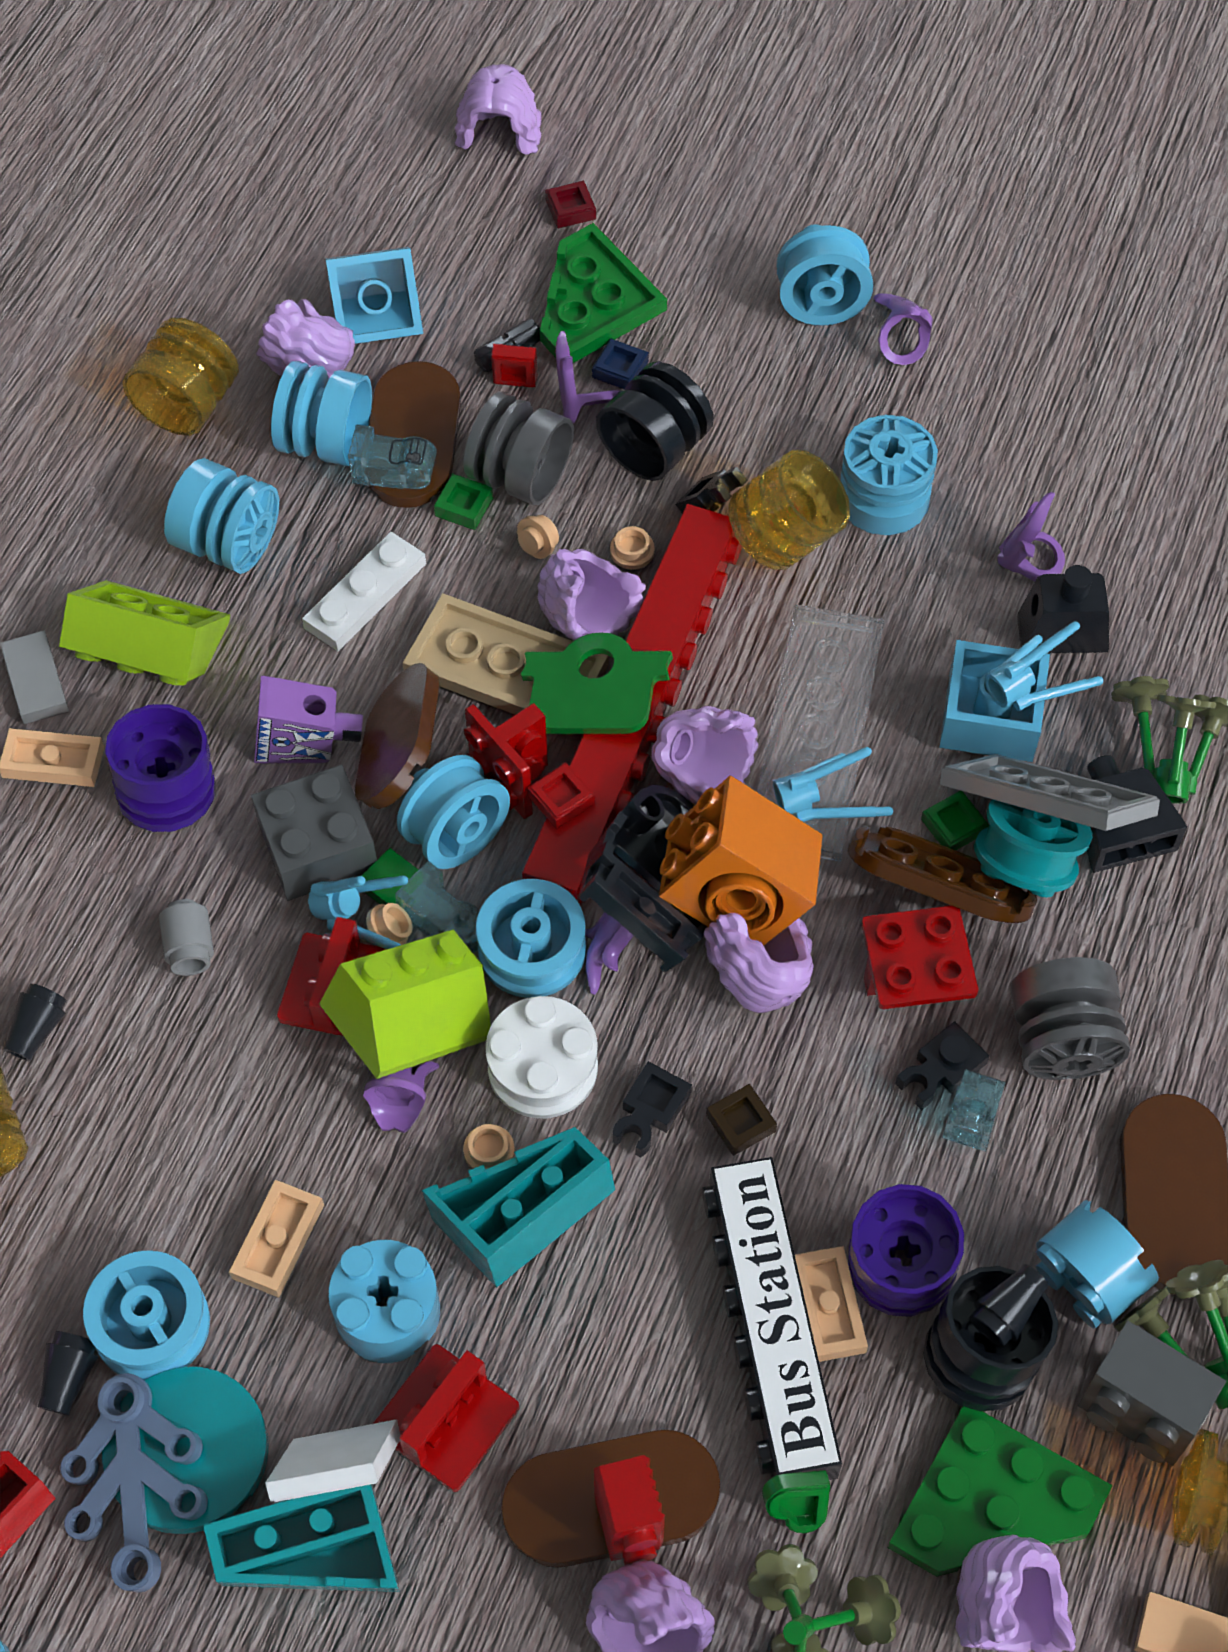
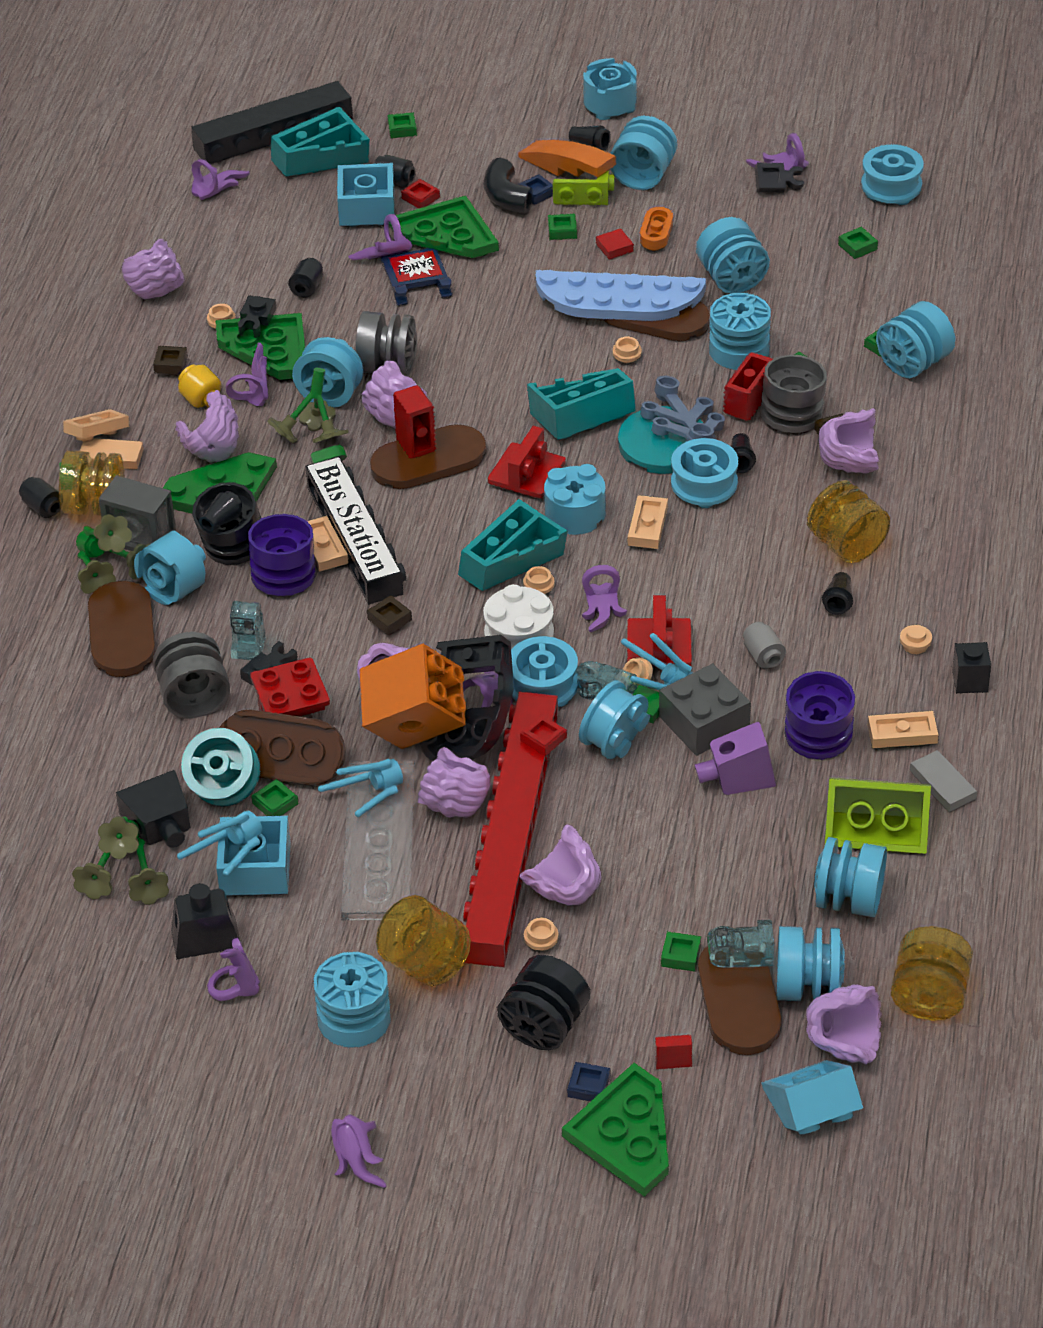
camera: 170 degrees right, 15 degrees down
(333, 1461) = (576, 423): white tile -> none
(364, 591) = (732, 876): white plate -> none
(397, 736) = (665, 751): reddish brown tile -> none
(410, 1003) = (607, 613): lime slope -> none
(485, 653) = (617, 836): tan plate -> none
(503, 93) = (761, 1282): lavender hair -> none
(510, 752) = (589, 759): red bracket -> none
(518, 448) = (640, 962): flat silver wheel -> none
(523, 334) = (681, 1083): black piece -> none
(537, 536) = (614, 925): light nougat plate -> none
(570, 204) = (672, 1223): dark red tile -> none
(571, 402) = (624, 1037): medium lavender piece -> none
(595, 705) = (526, 795): green piece -> none
(653, 1102) = (445, 615): black plate -> none
(713, 490) = (491, 970): black plate -> none
(824, 275) = (429, 1151): medium azure wheel -> none
(1050, 791) = (209, 772): light grey tile -> none

